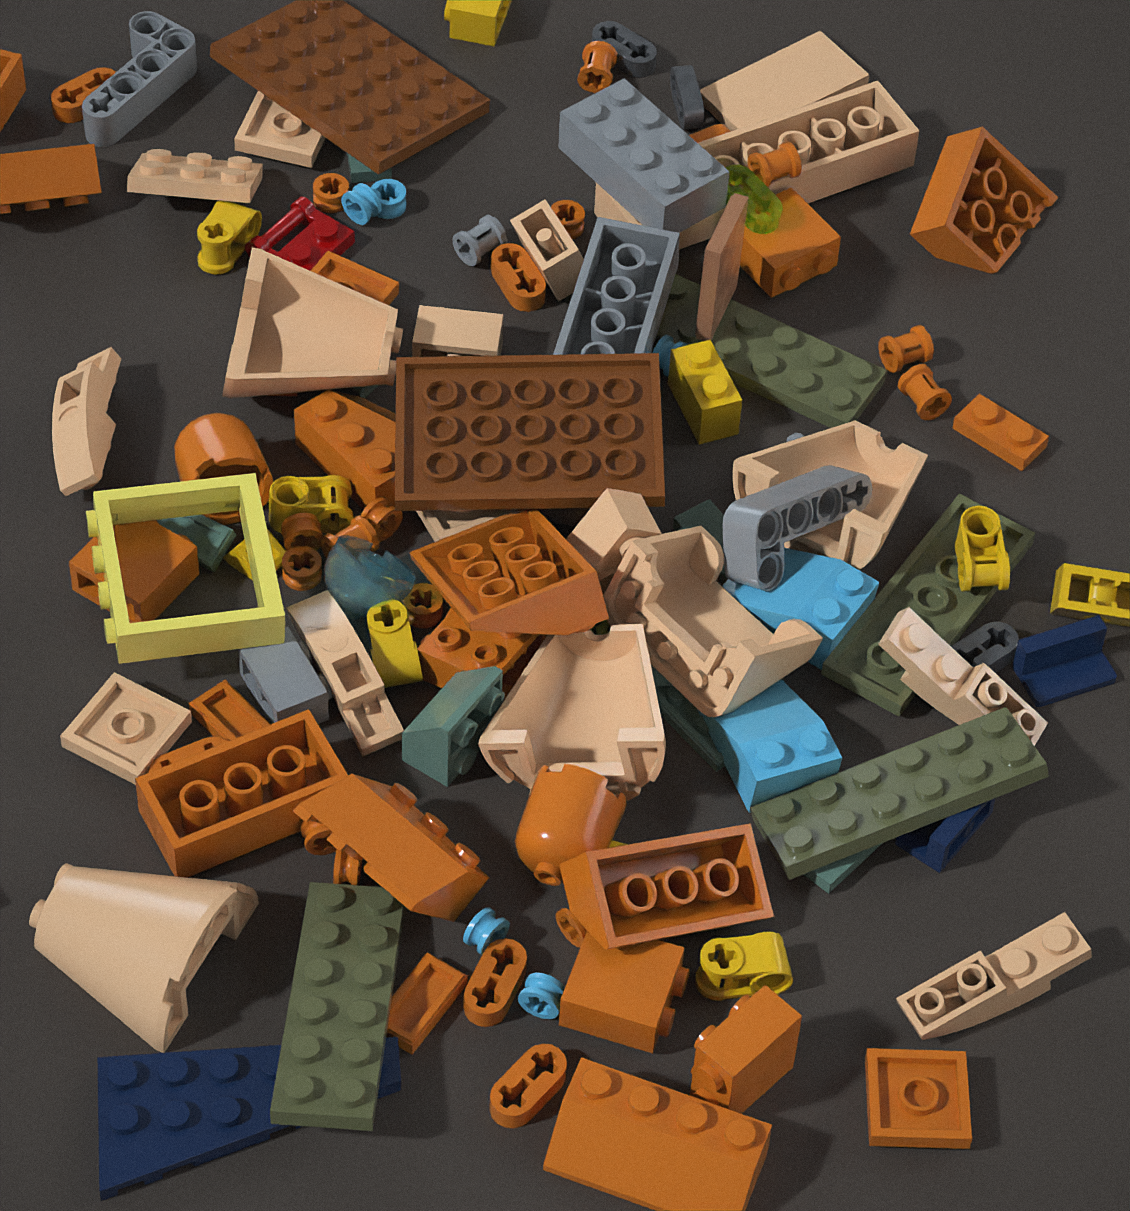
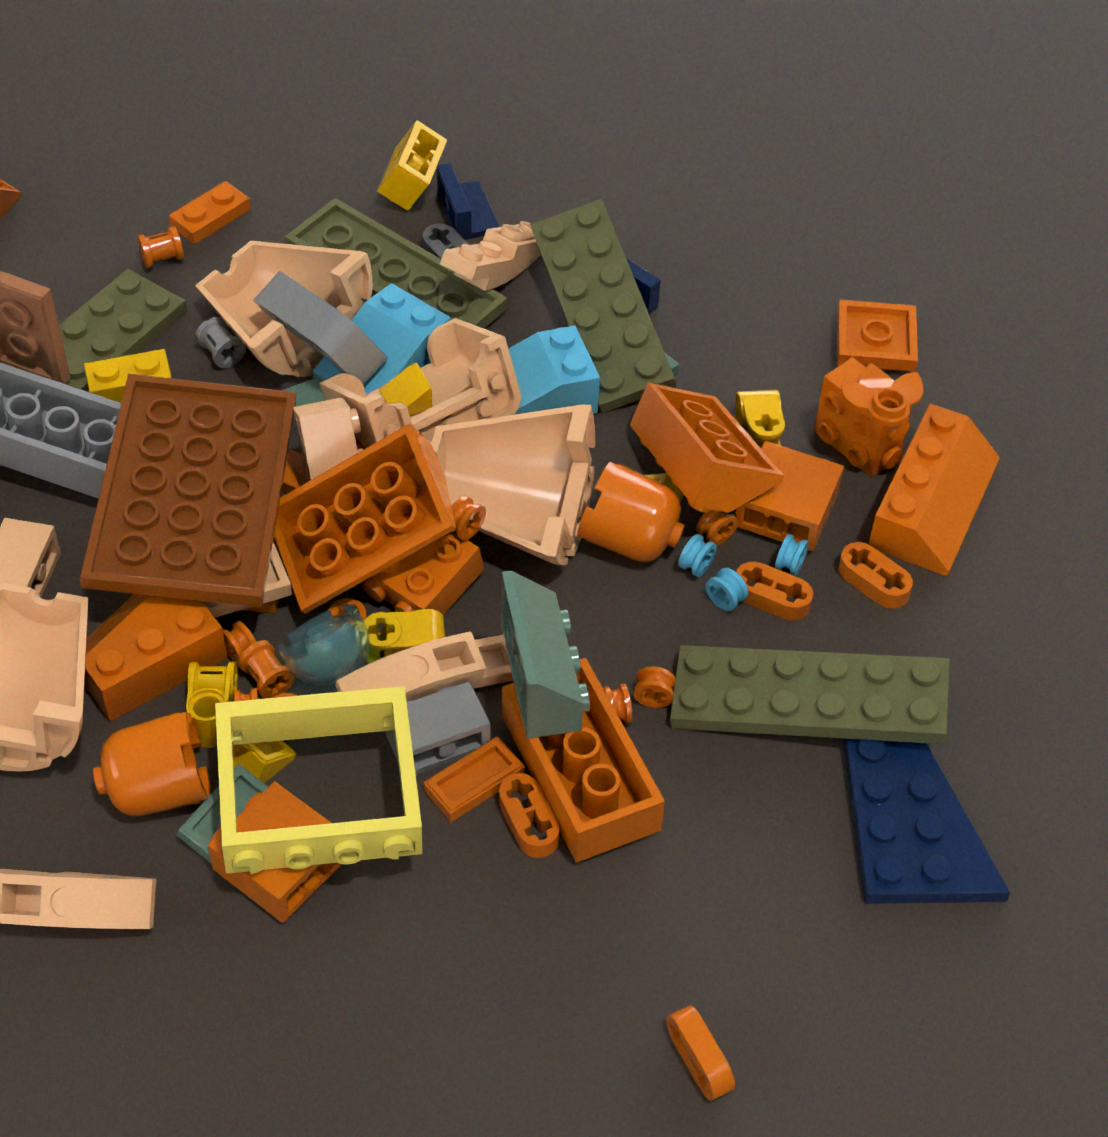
camera: 85 degrees left, 0 degrees up
(125, 728) = (479, 868): light nougat plate -> none
(137, 939) = (739, 847): light nougat cone -> none
(319, 712) = (541, 658): none -> sand green slope
(401, 845) = (656, 628): orange wedge -> none
(423, 1001) = (780, 633): orange tile -> none
(448, 729) = (480, 578): sand green slope -> none
(515, 657) = (467, 517): none -> orange bush
(532, 904) = (697, 555): none -> medium azure bush
(714, 614) = (409, 389): none -> yellow slope
(738, 1037) = (882, 397): none -> orange plate
(901, 355) = (108, 258): orange bush -> none
(981, 550) = (360, 221): yellow piece -> none
(995, 983) = (769, 277): light nougat slope -> none

